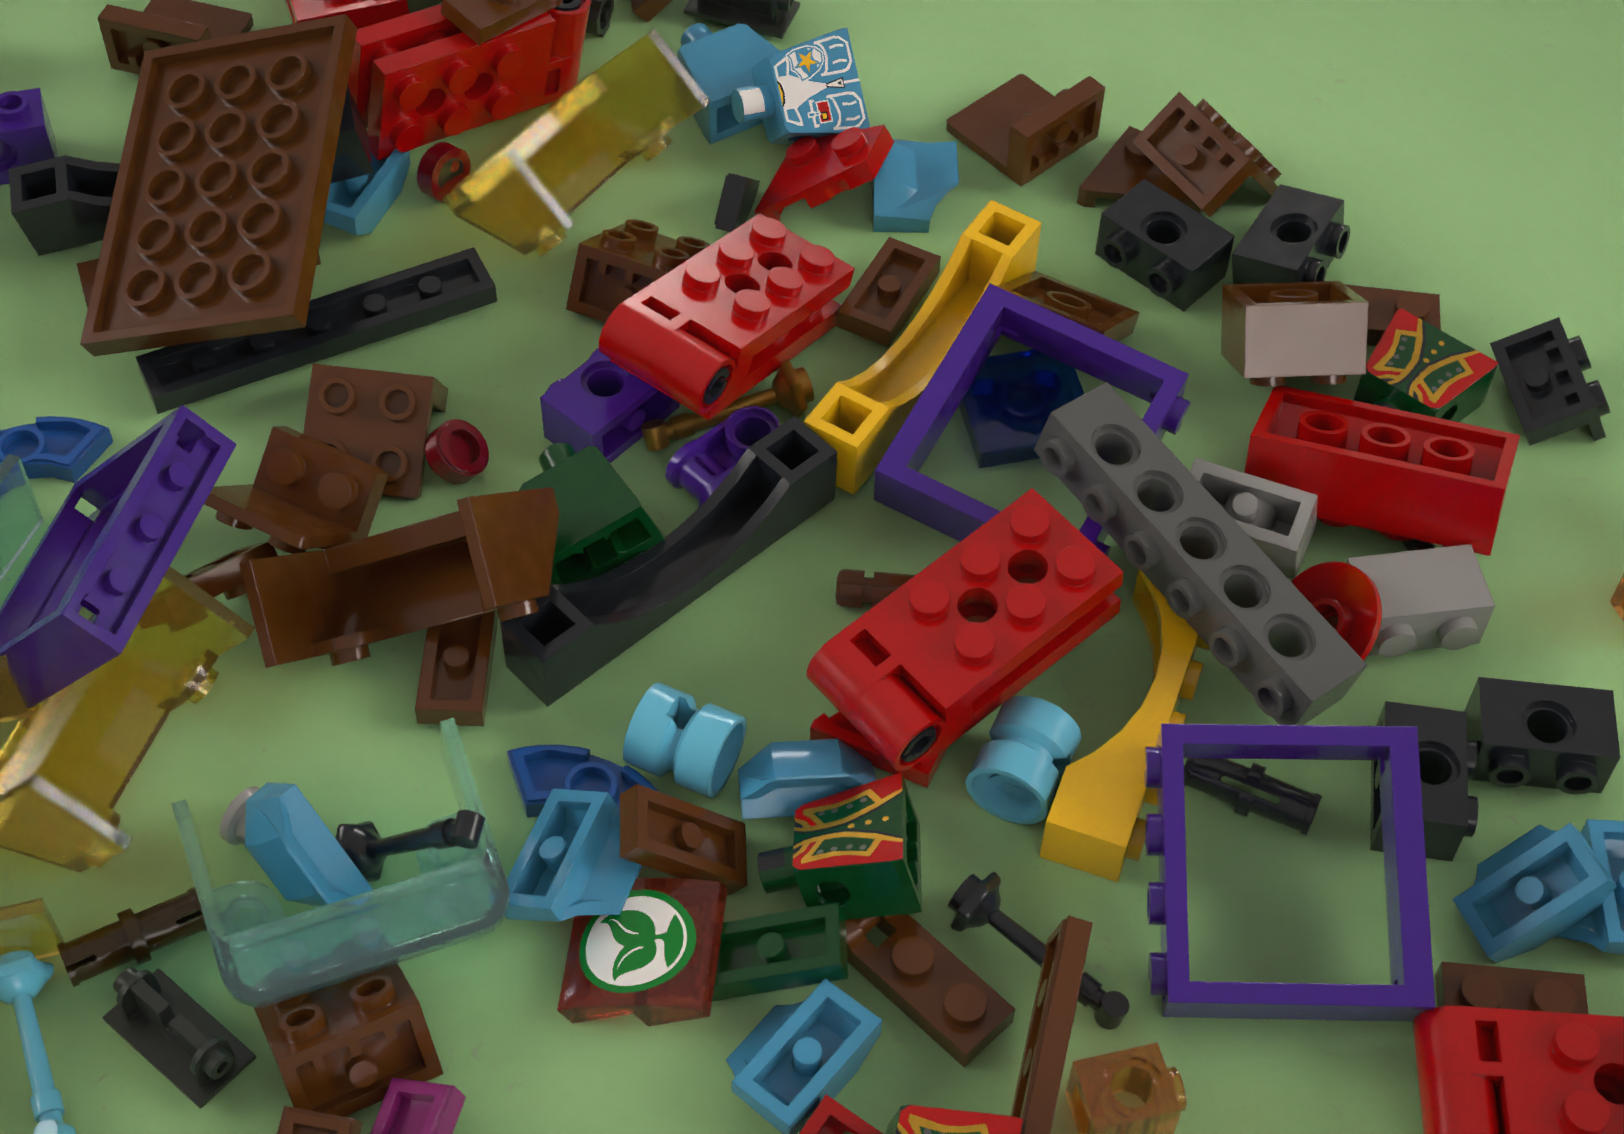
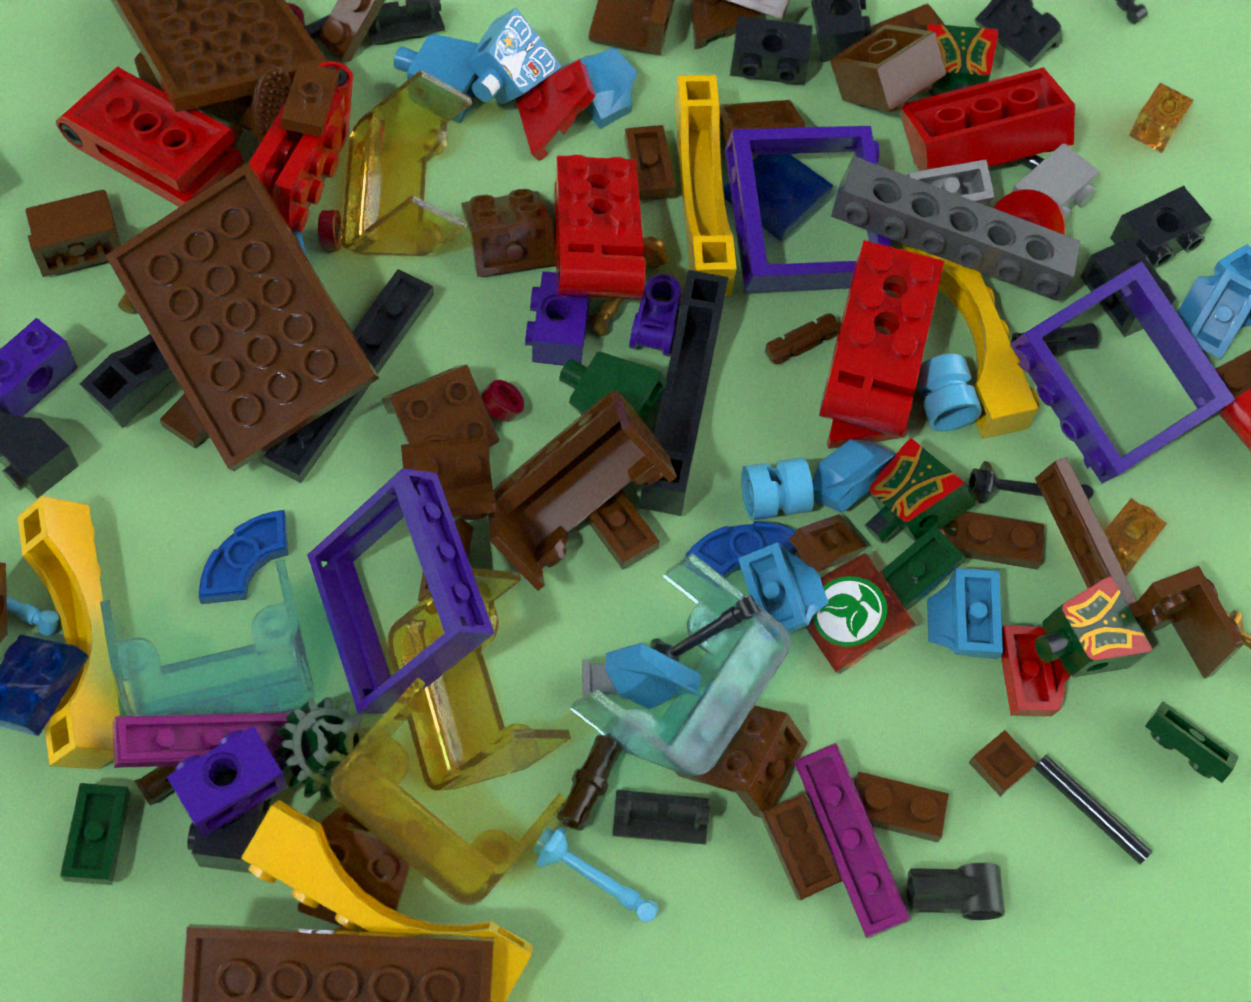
camera: 40 degrees left, 10 degrees up
(735, 201) = (516, 147): black tile -> none

